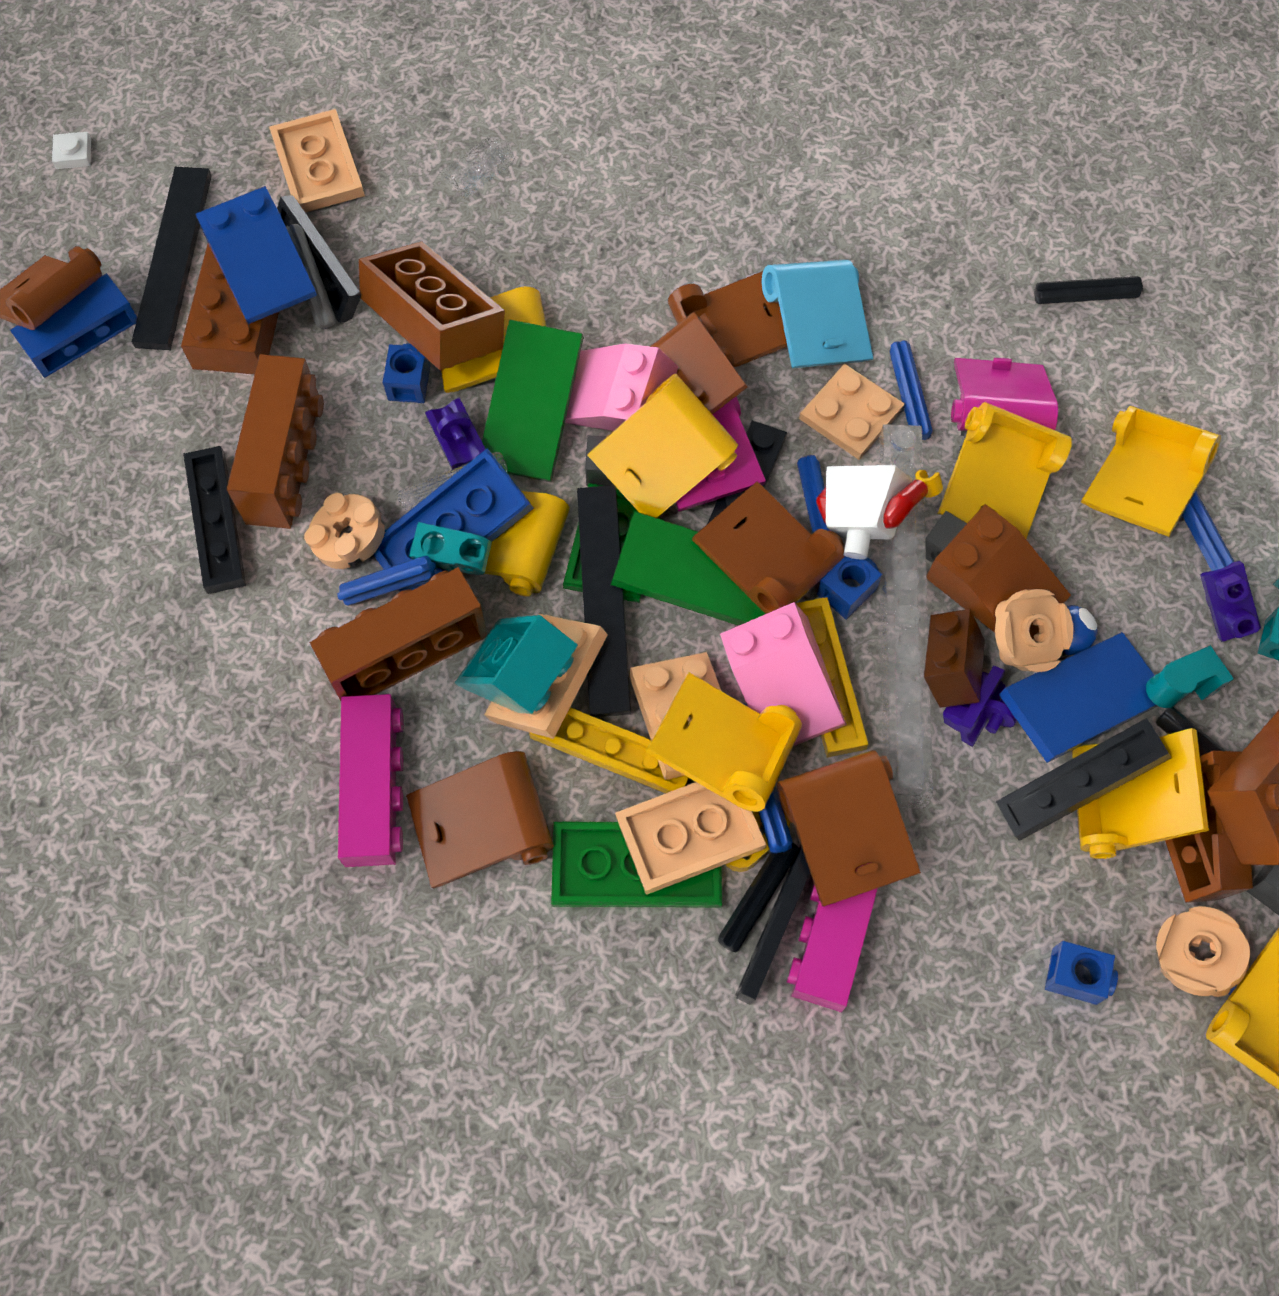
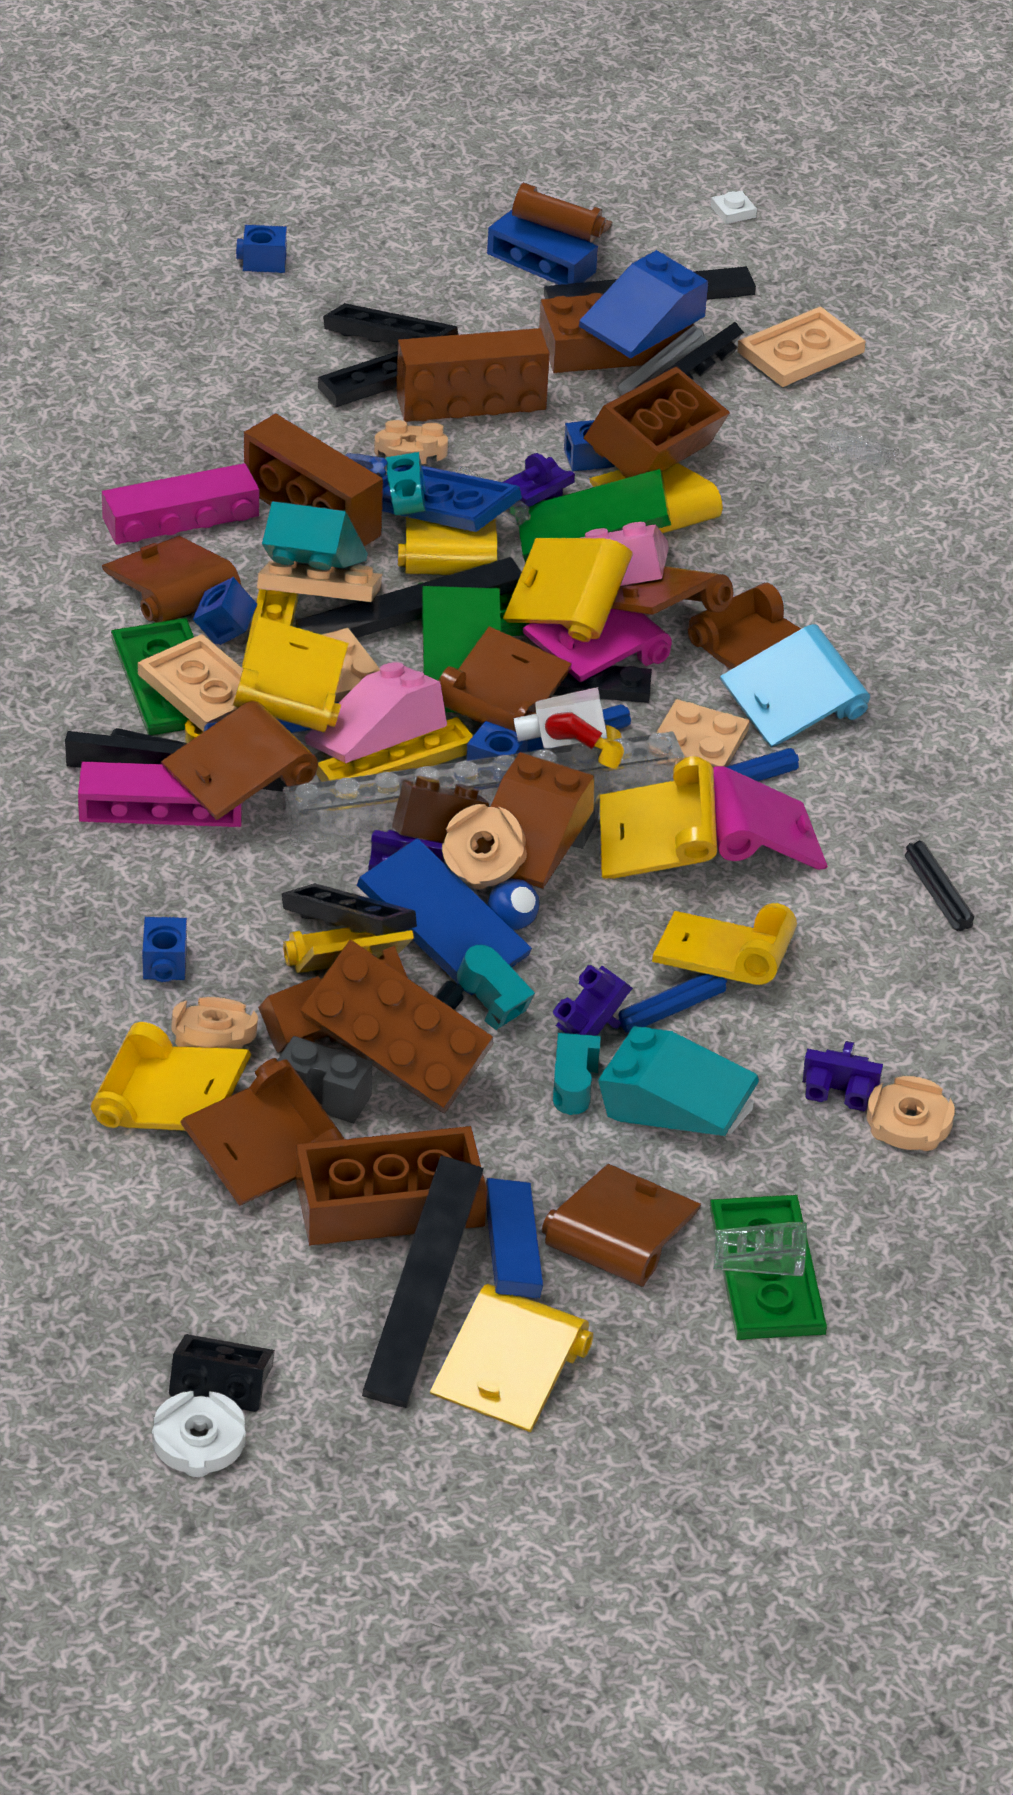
camera: 70 degrees right, 25 degrees down
(155, 496) = (382, 325): none -> black plate
(584, 773) = (225, 611): none -> blue brick

